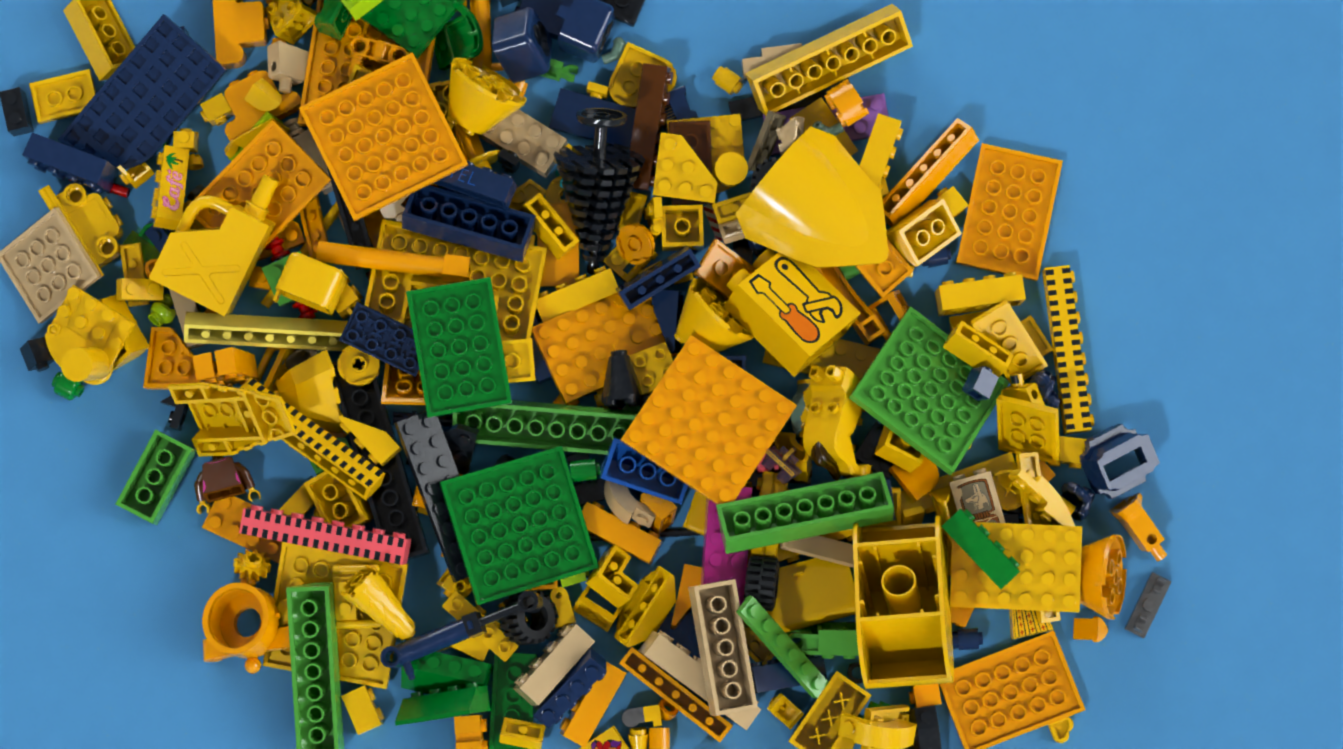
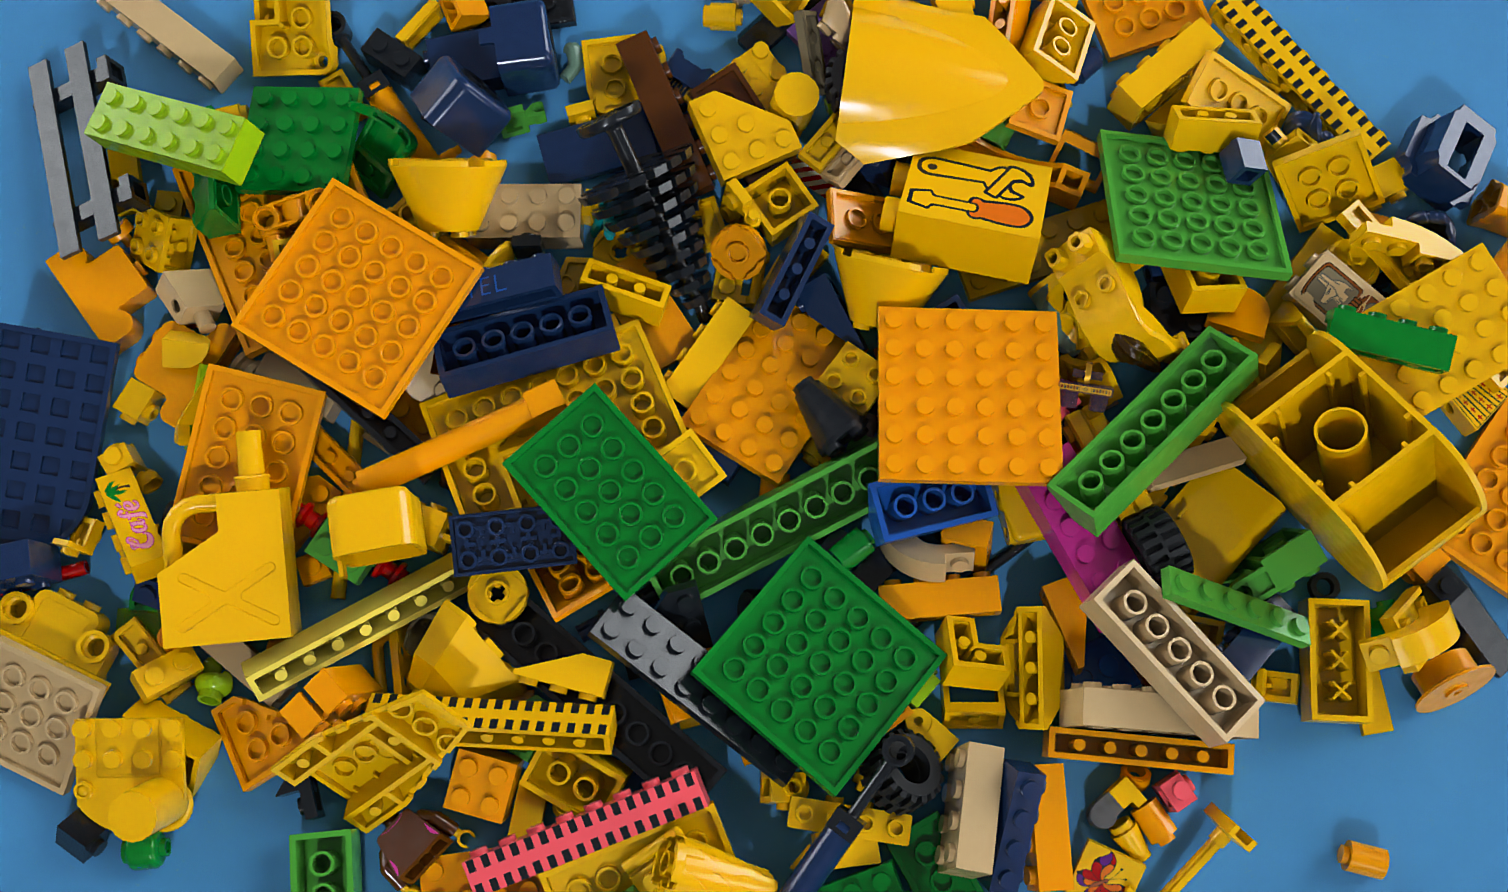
camera: 30 degrees left, 5 degrees down
(283, 470) = (483, 783): none -> light orange brick
(684, 732) = (1175, 791): none -> coral brick

